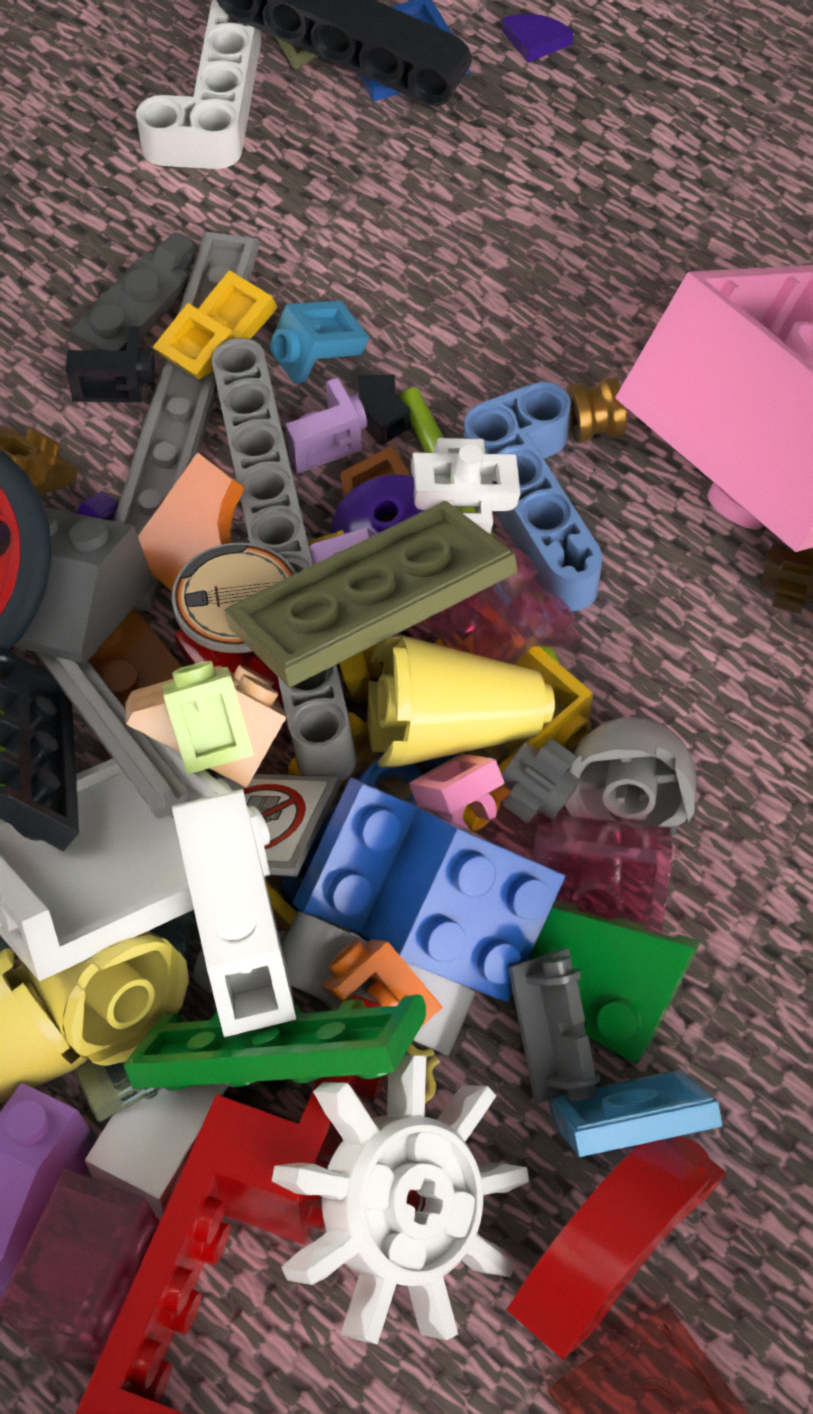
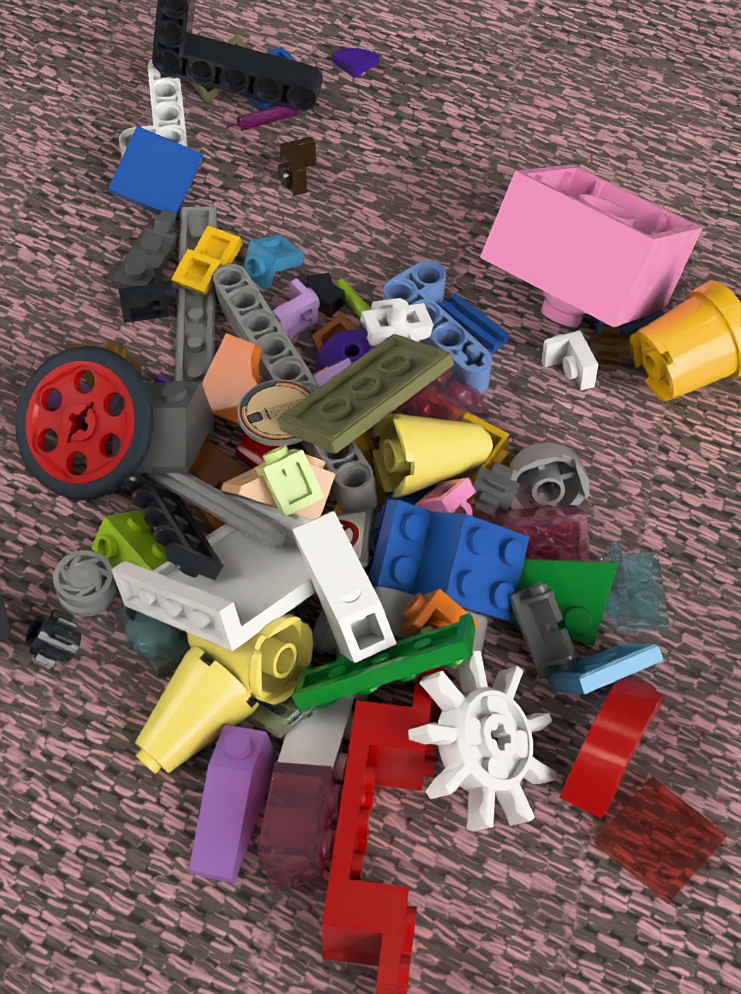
camera: 15 degrees left, 5 degrees down
(178, 172) = (155, 172): none -> blue tile
(371, 105) = (264, 117): none -> magenta piece
(395, 178) = (294, 159): none -> dark brown bracket
(596, 410) = (461, 273): pearl gold wheel -> none
(626, 510) = (476, 323): none -> blue tile
(729, 987) = (636, 592): none -> clear light blue bracket
(739, 580) = (575, 355): none -> white bracket

